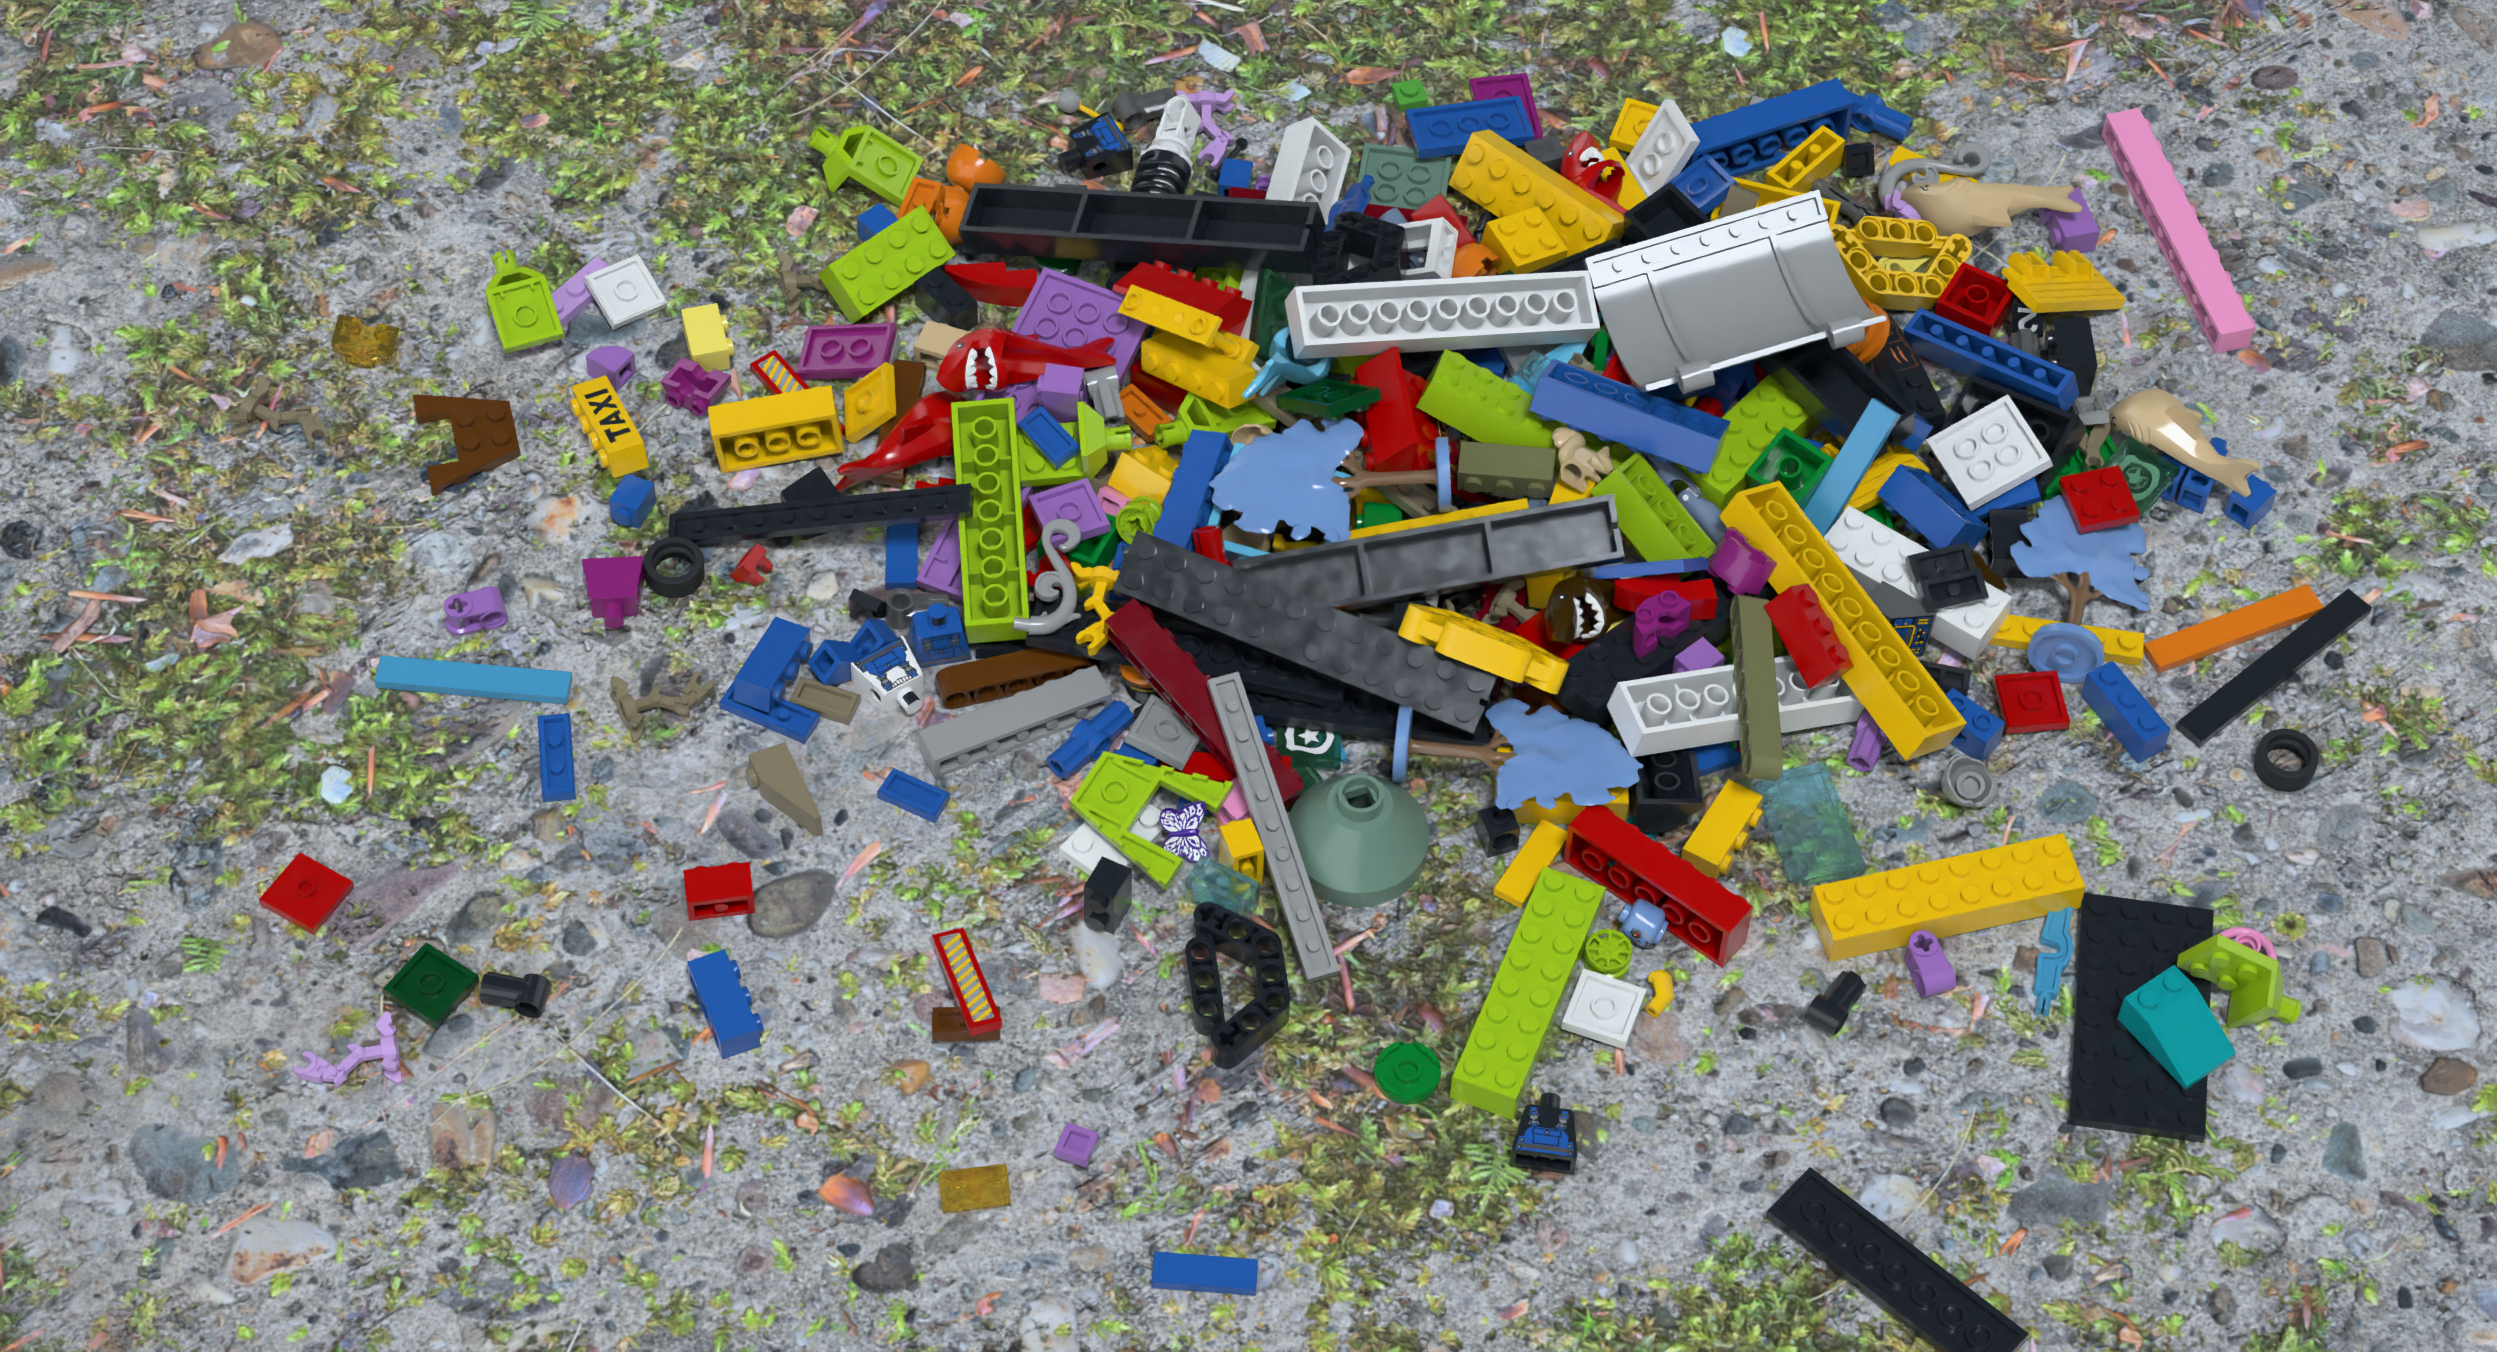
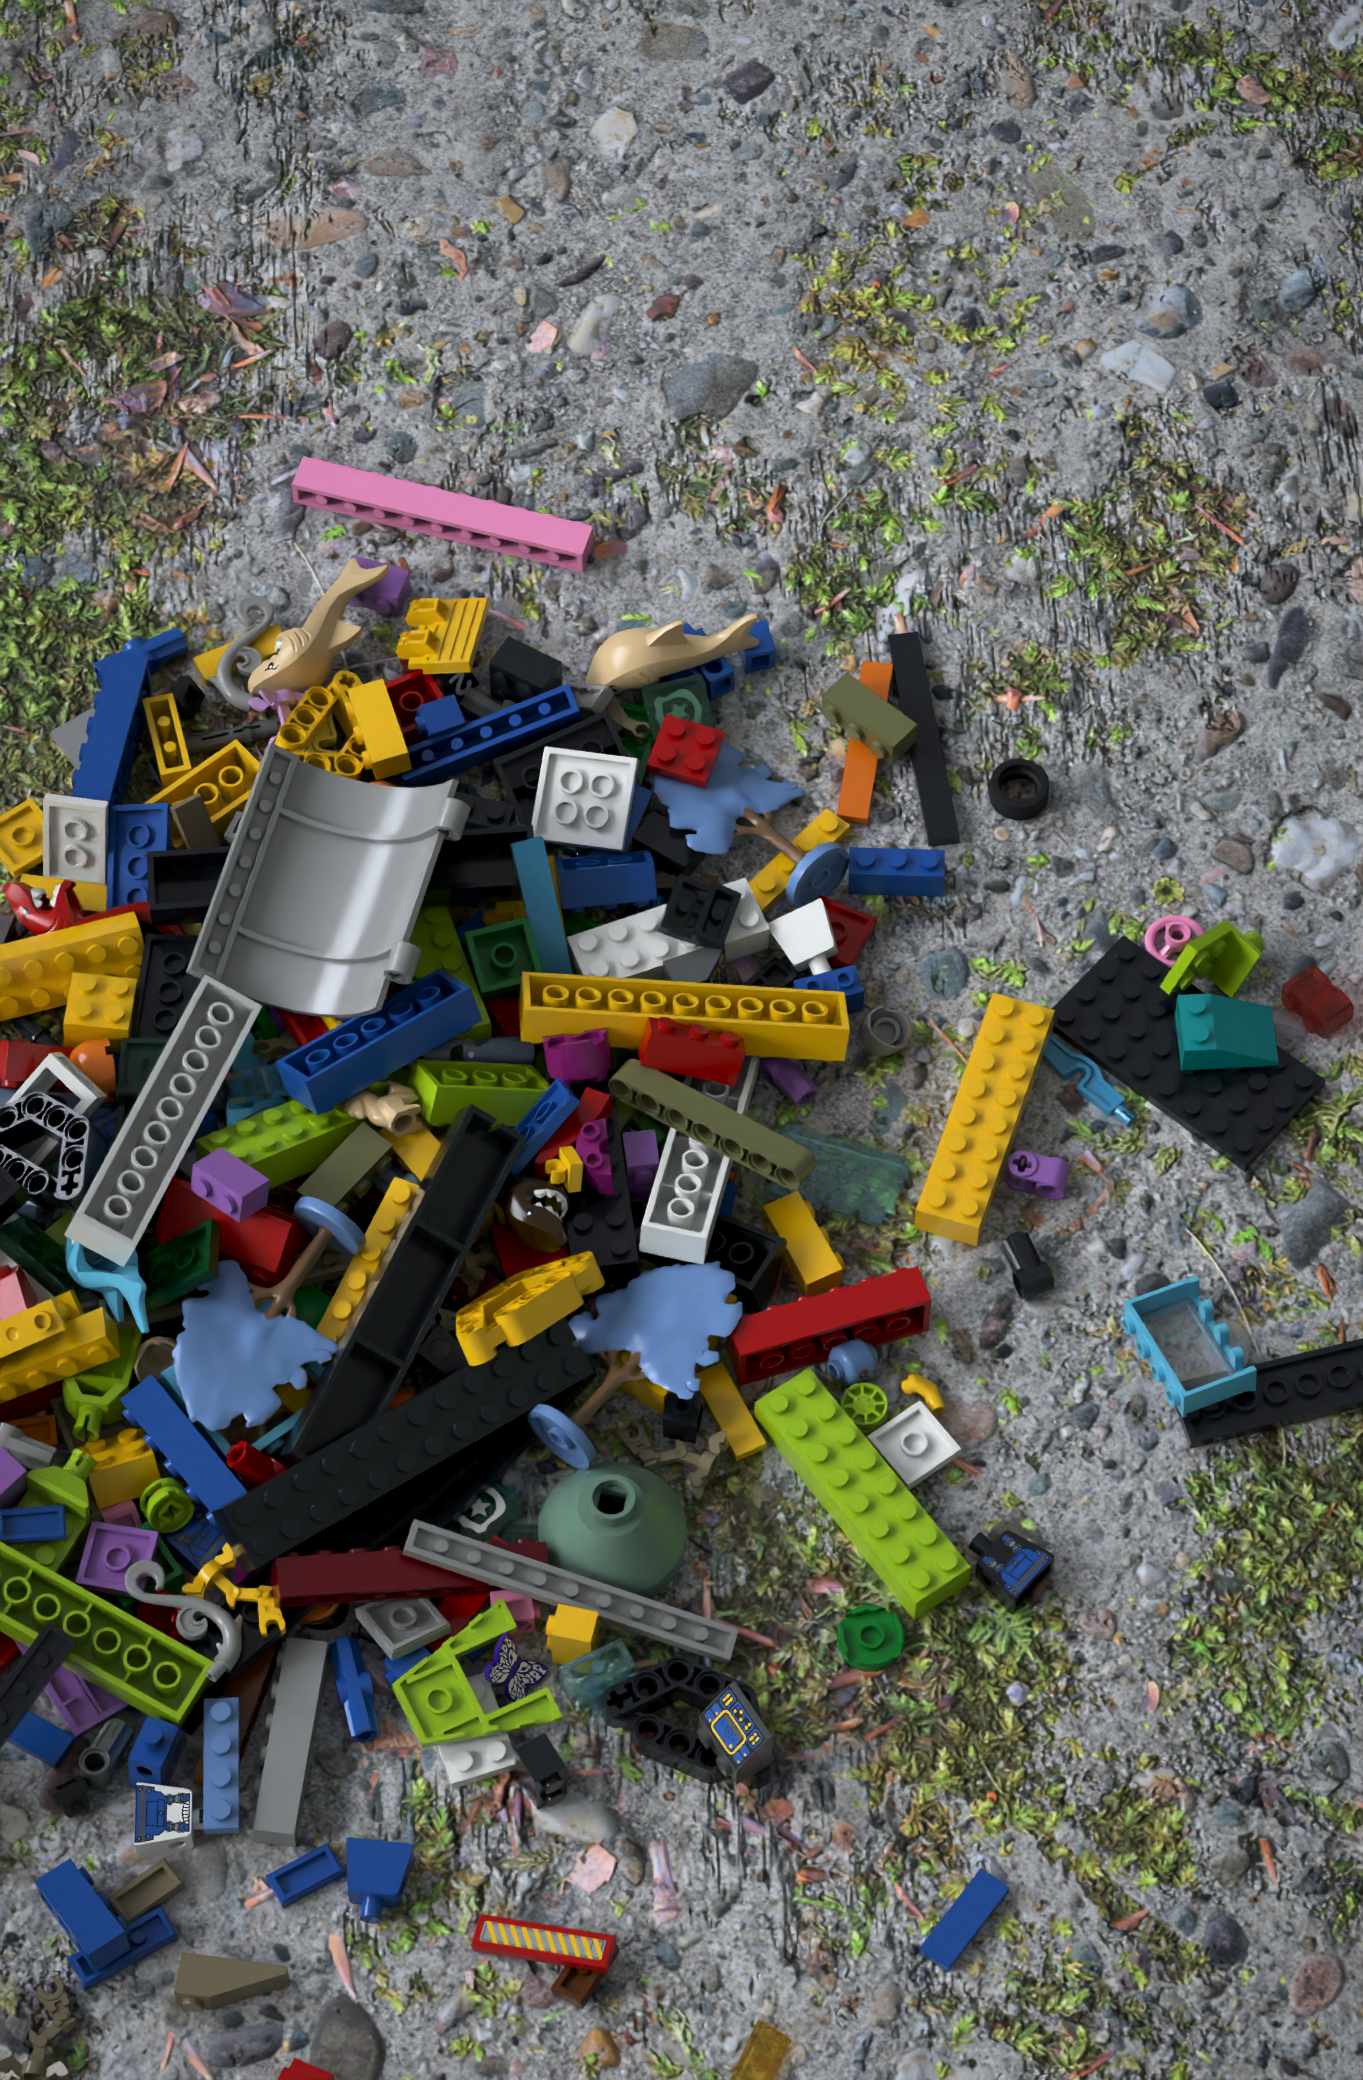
camera: 55 degrees left, 5 degrees up
(834, 658) = (117, 1836): blue brick -> none
(944, 839) = (377, 1875): none -> blue torso
(955, 681) = (221, 1766): none -> medium blue plate
(1076, 1145) = (770, 1949): medium lavender plate -> none
(1230, 1005) = (735, 1735): none -> slope
(1413, 380) = (230, 1184): none -> medium lavender brick
(1469, 870) = (706, 1464): none -> dark tan piece
(1624, 605) = (566, 1169): none -> yellow tile
(1853, 1156) = (1187, 1346): none -> window
(1926, 281) = (377, 729): none -> yellow brick
(1973, 312) = (438, 717): none -> blue brick
(2002, 675) = (806, 937): none -> white torso
(2249, 612) = (869, 718): none -> olive brick
(2275, 1088) = (1317, 1001): none -> clear red brick

